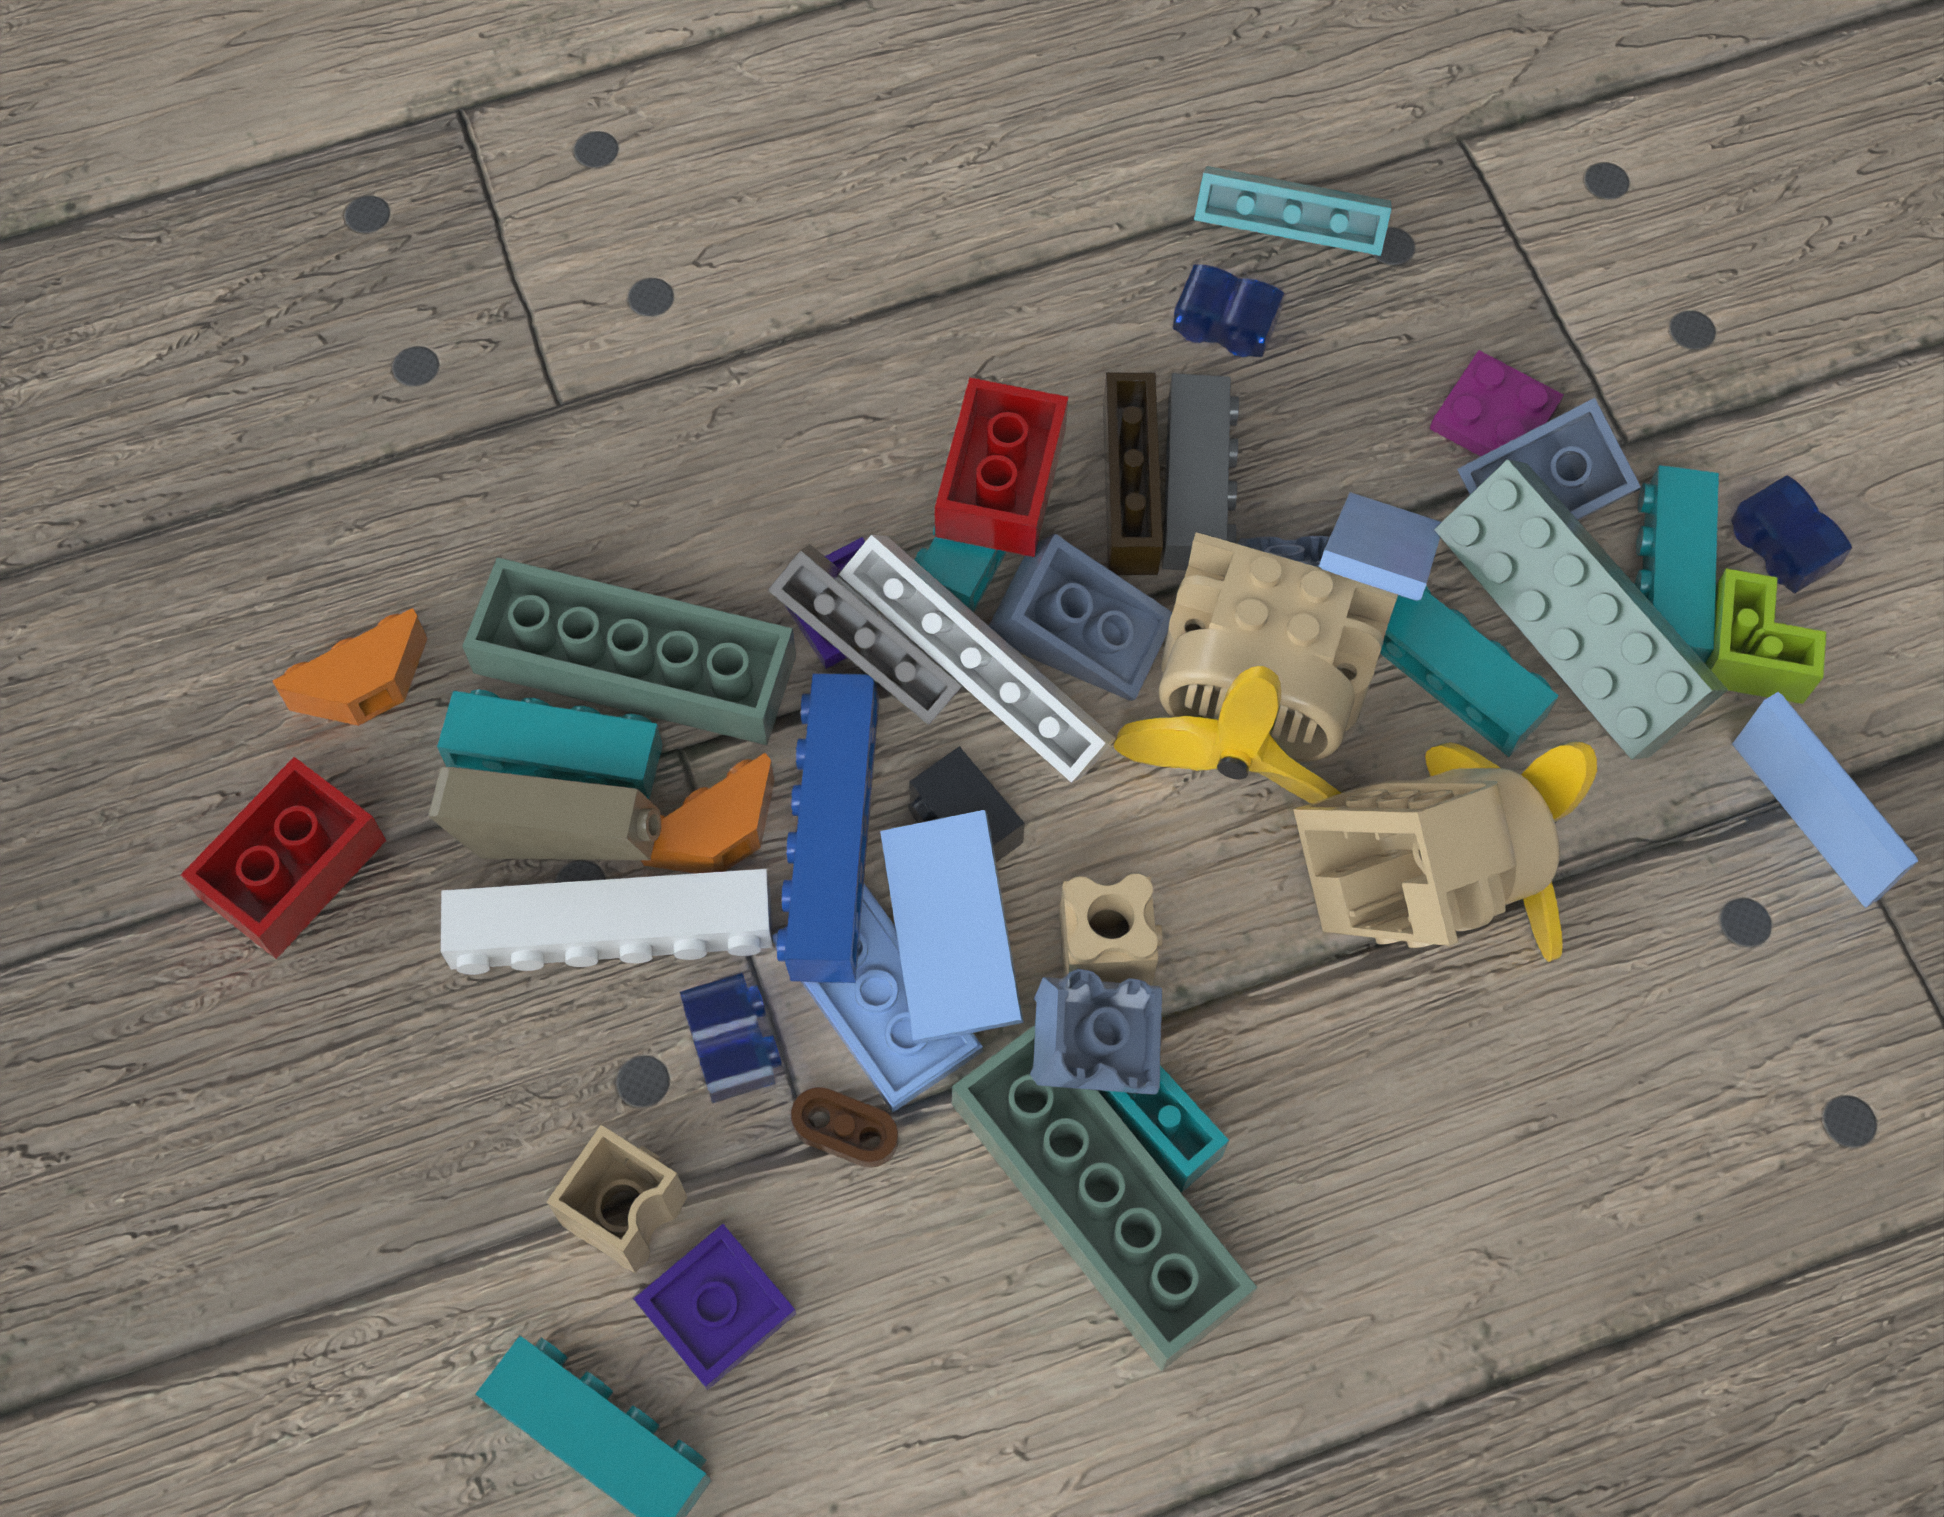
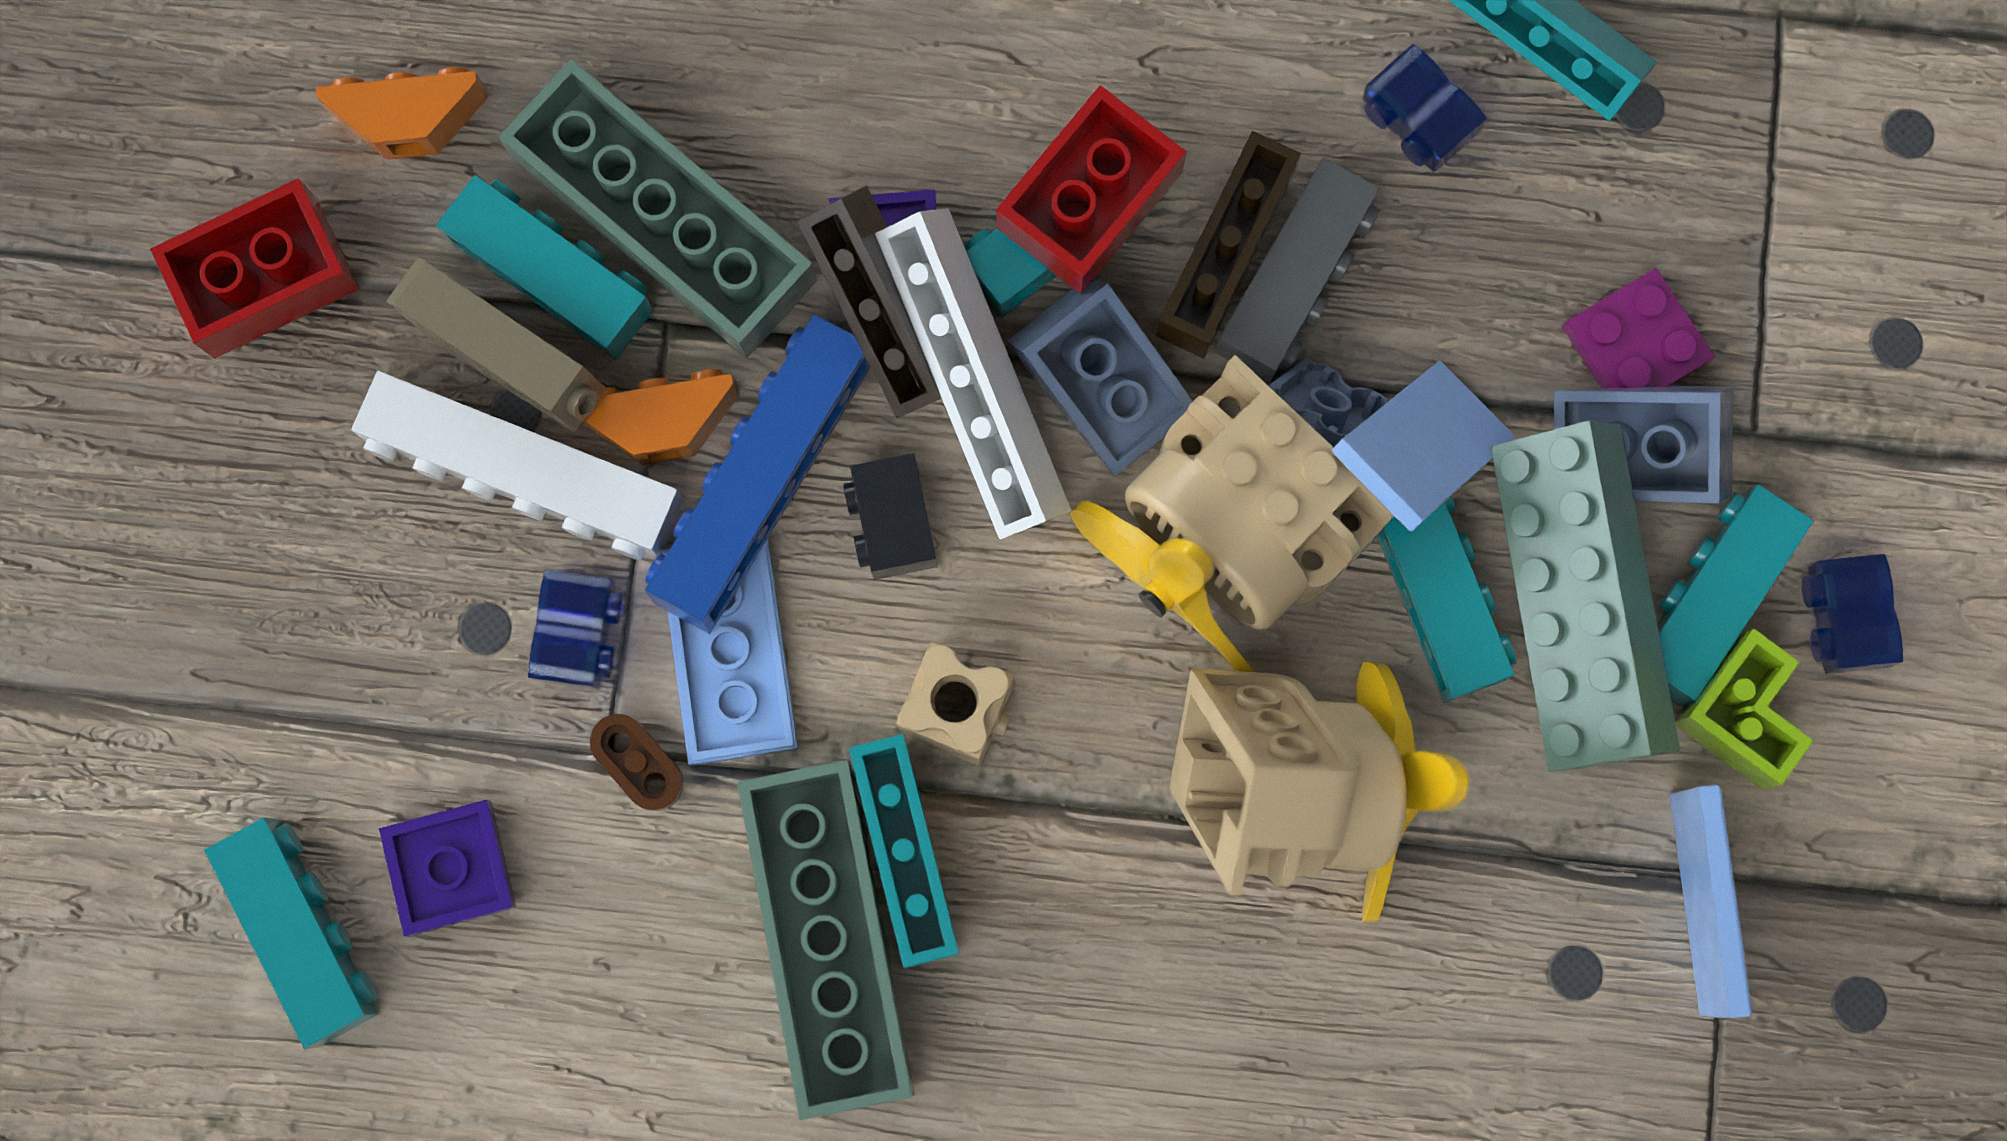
camera: 30 degrees right, 15 degrees up
(603, 1170) = (368, 731): tan piece -> none
(951, 927) = (817, 626): light blue tile -> none
(1097, 1034) = (887, 802): sand blue slope -> none

